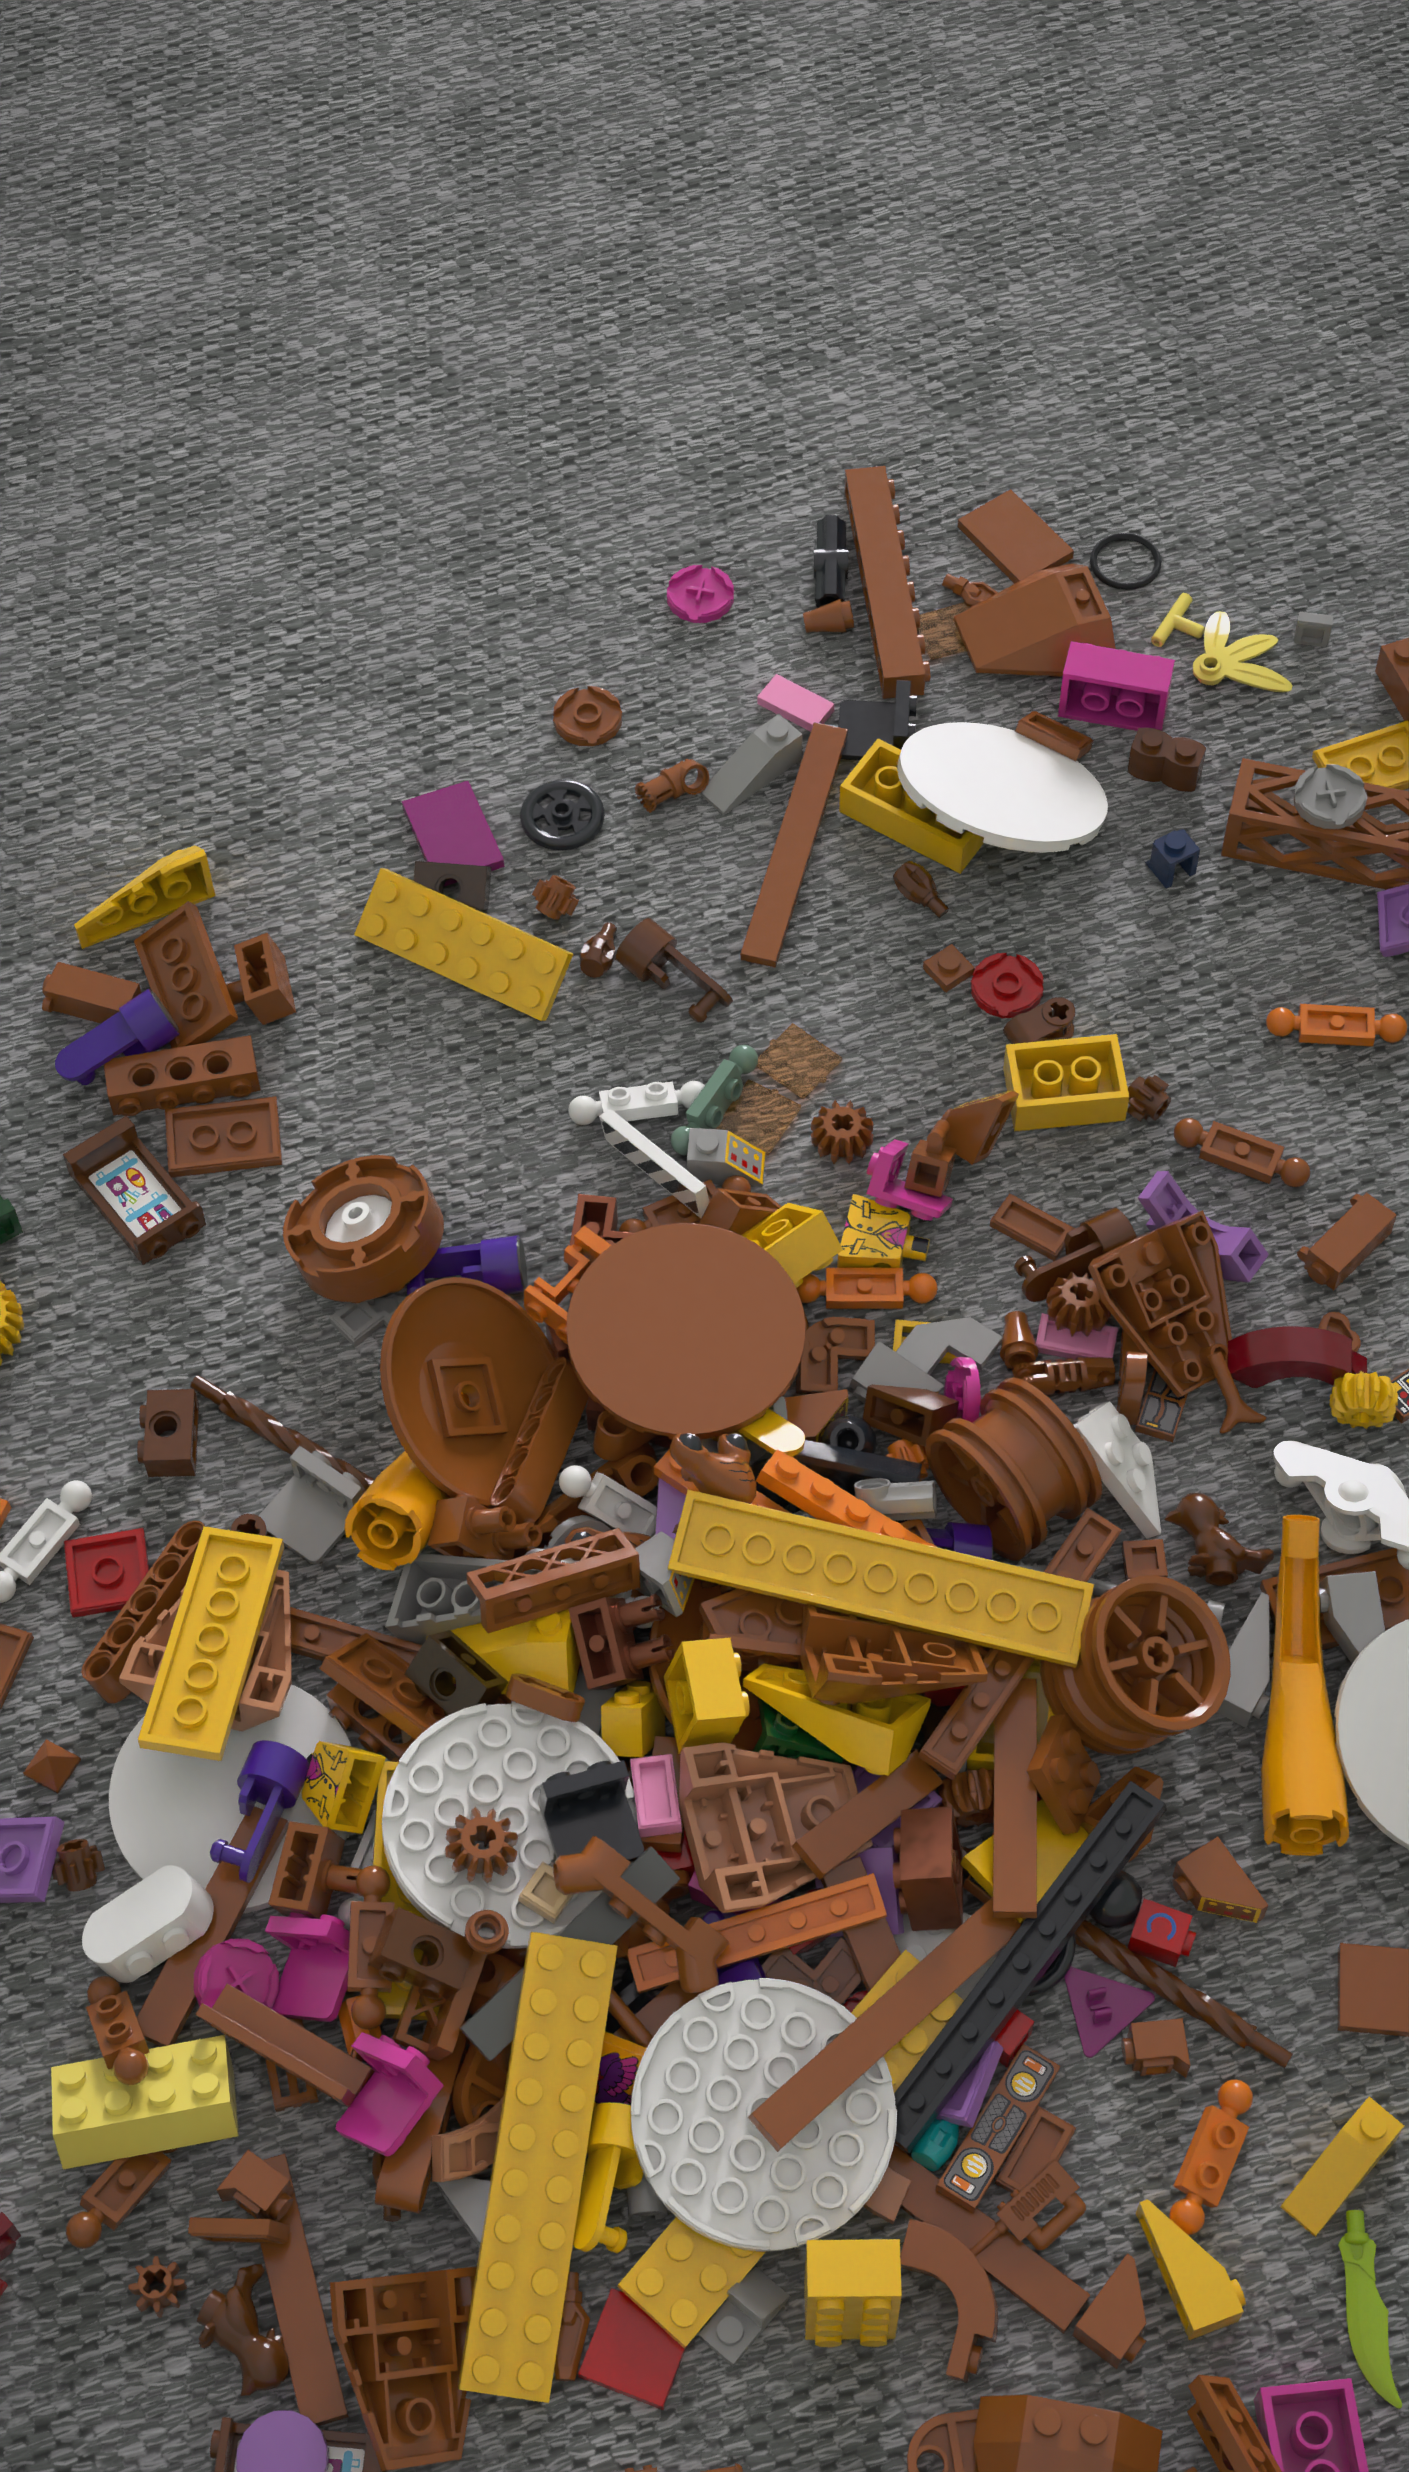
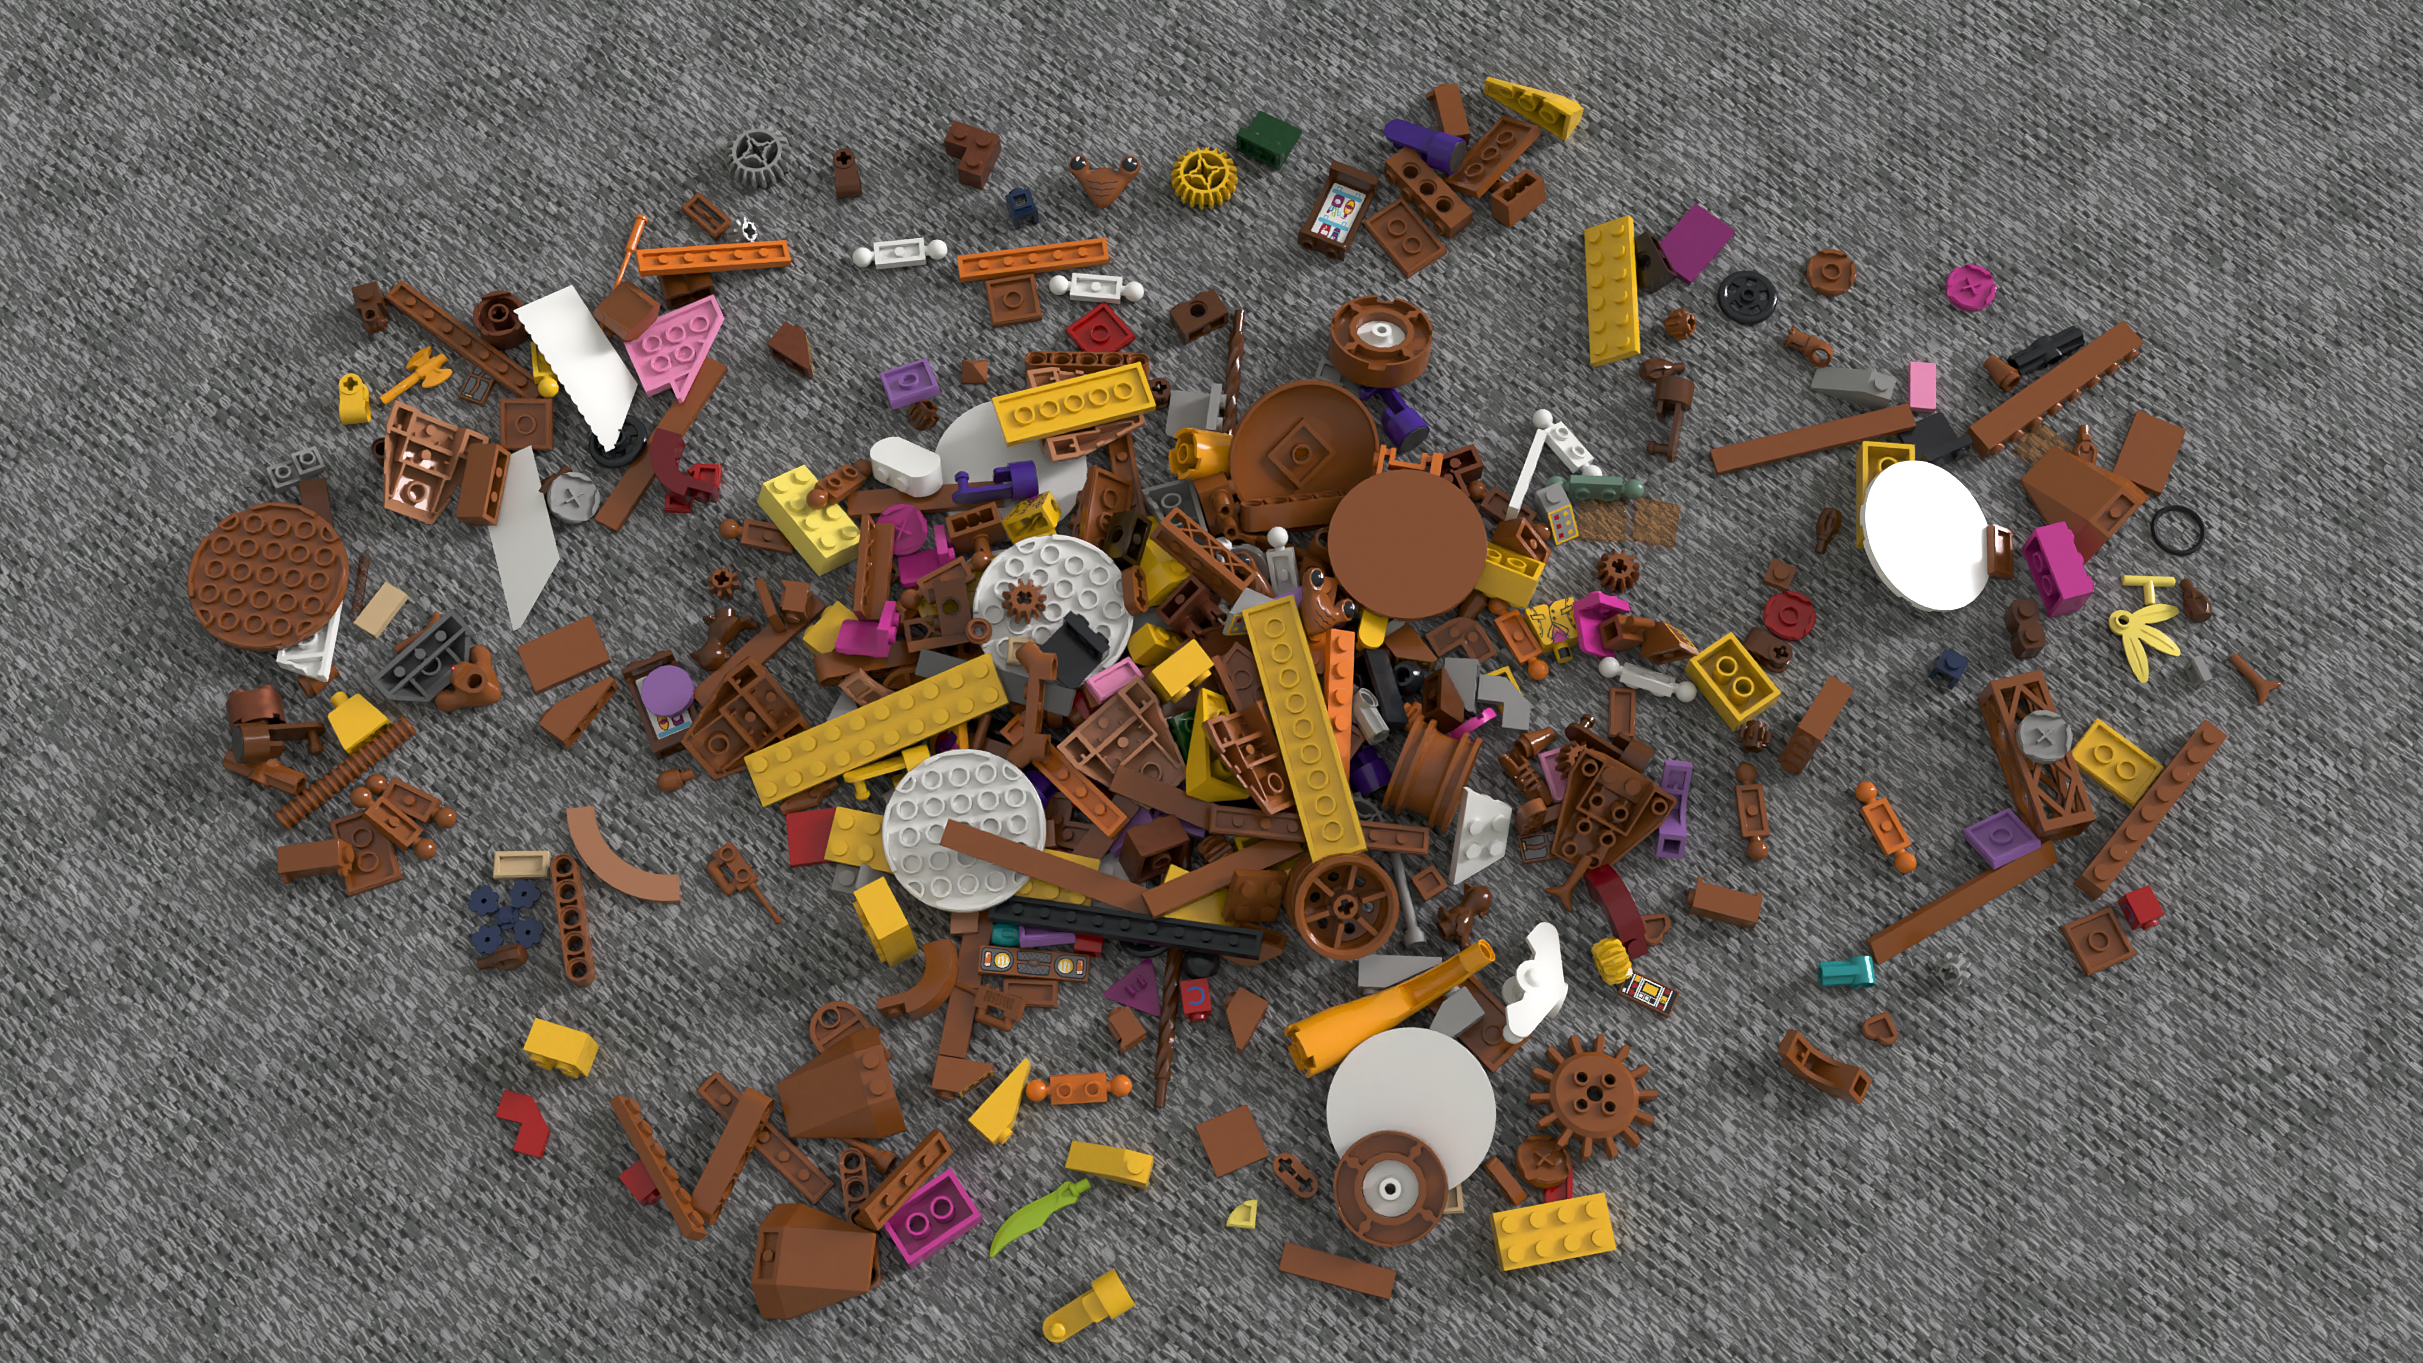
camera: 60 degrees right, 10 degrees up
(336, 2164) = (823, 635): none -> yellow brick
(1005, 1174) = (1640, 677): none -> white plate
(1193, 1025) = (1814, 725): none -> dark orange arch
(1226, 589) = (2195, 602): none -> reddish brown piece
(1358, 584) = (2261, 686): none -> dark orange piece

